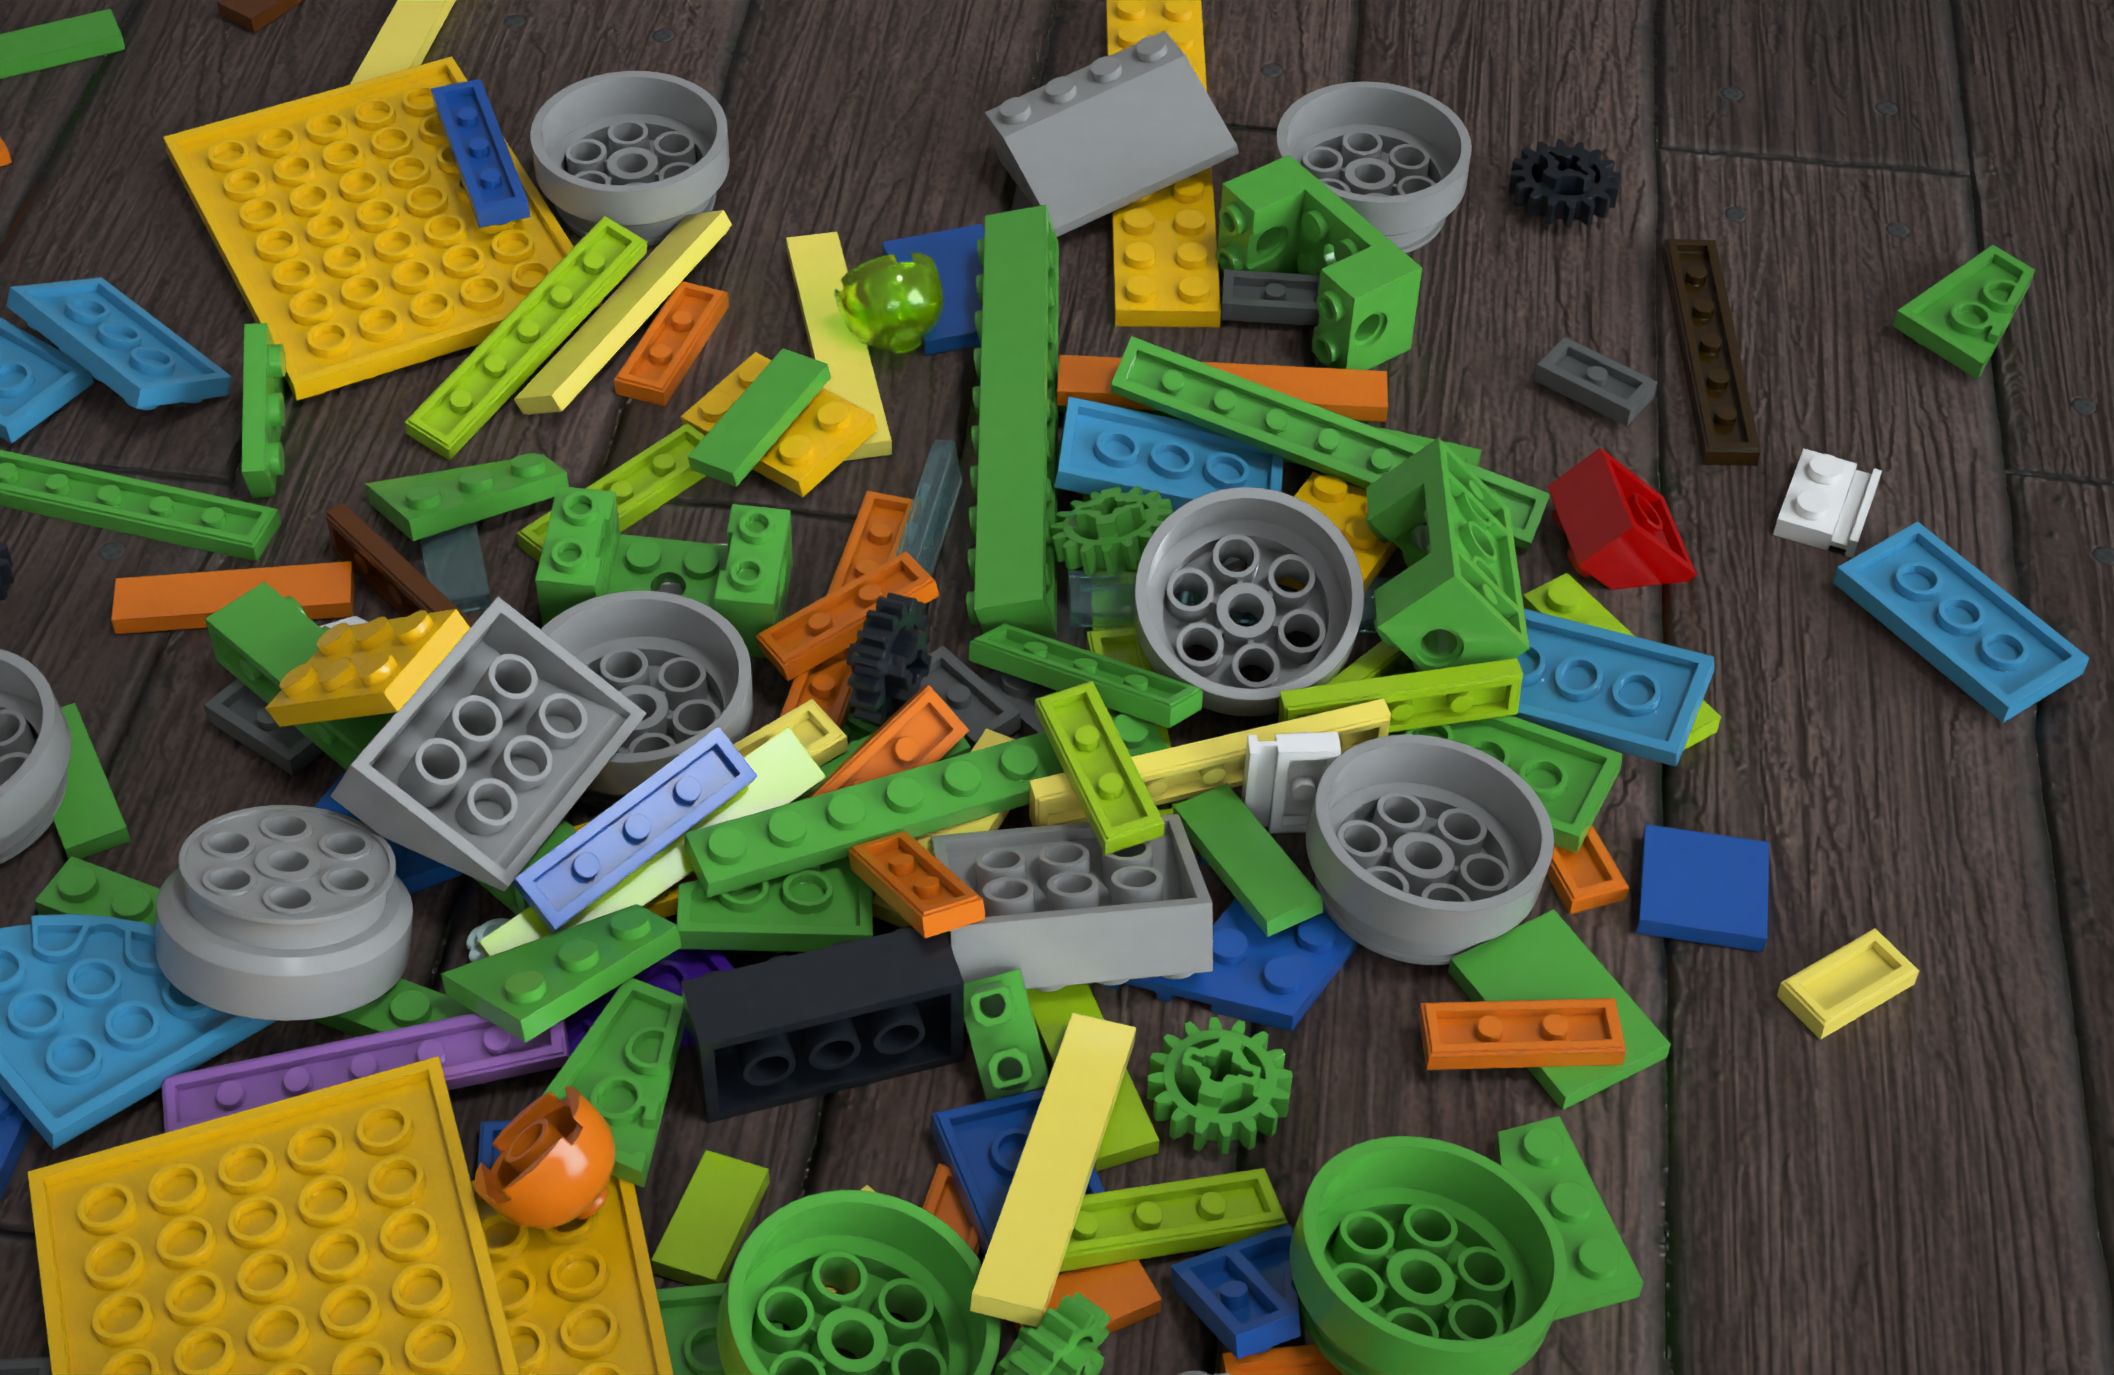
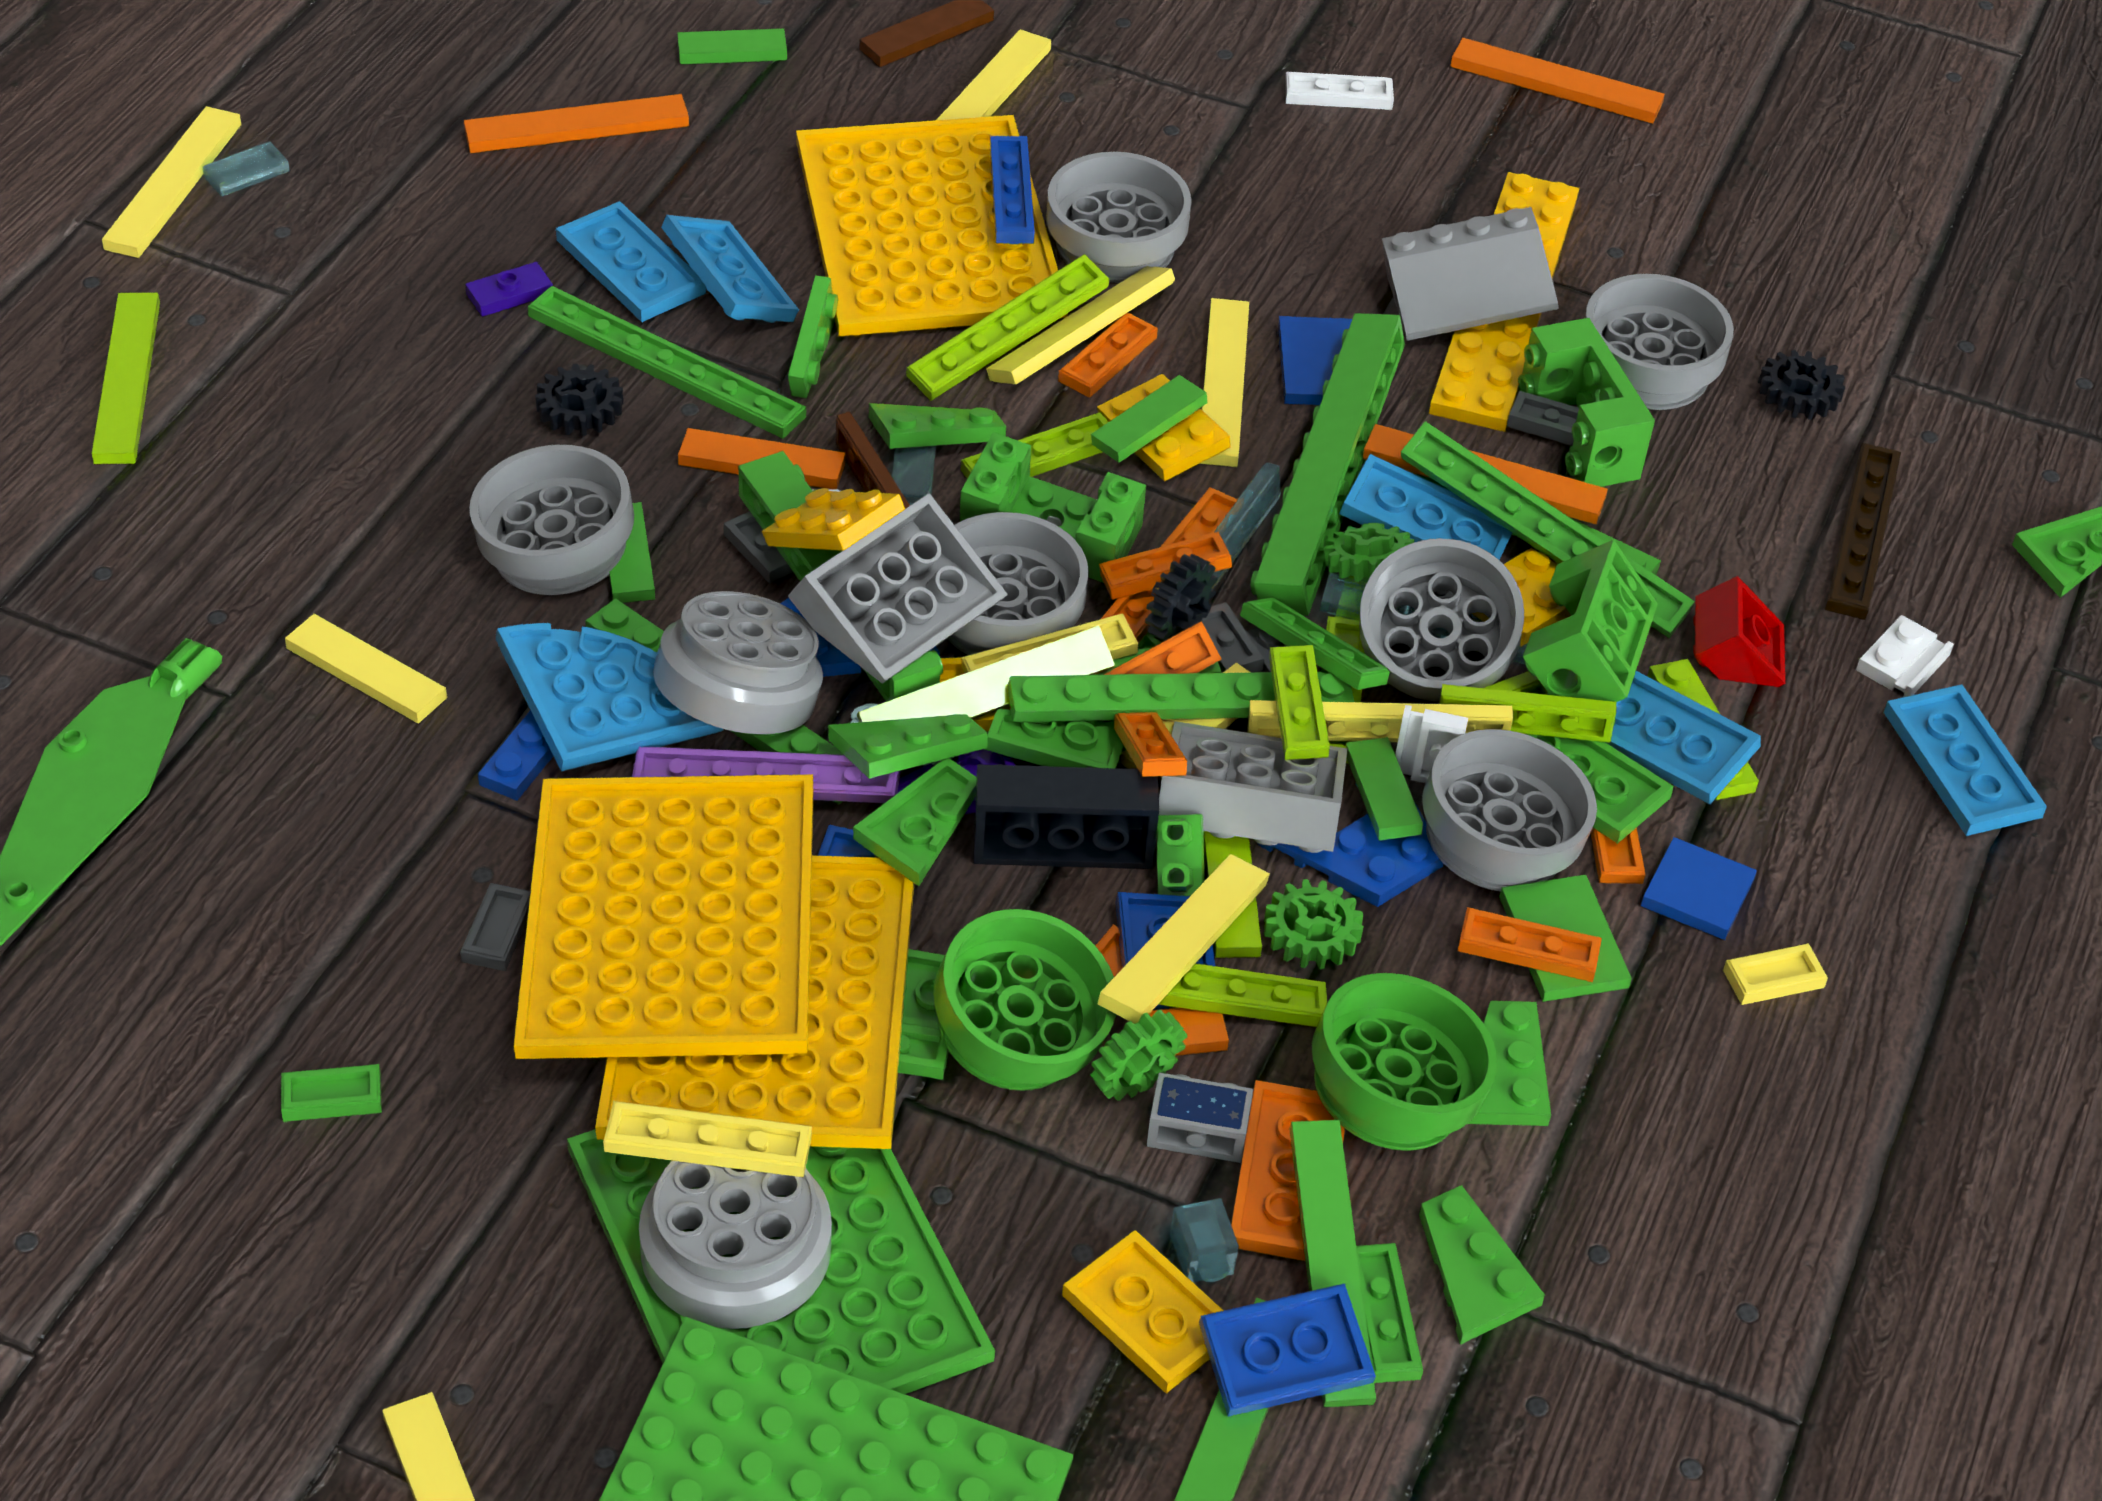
camera: 15 degrees right, 0 degrees up
(550, 1163) = (864, 853): orange cylinder -> none
(634, 830) = (977, 665): plate -> none
(710, 1220) = (953, 914): lime tile -> none
(892, 302) = (1268, 360): clear neon green cylinder -> none
(1244, 1292) = (1280, 1049): blue wing -> none
(1595, 381) = (1765, 532): dark grey plate -> none

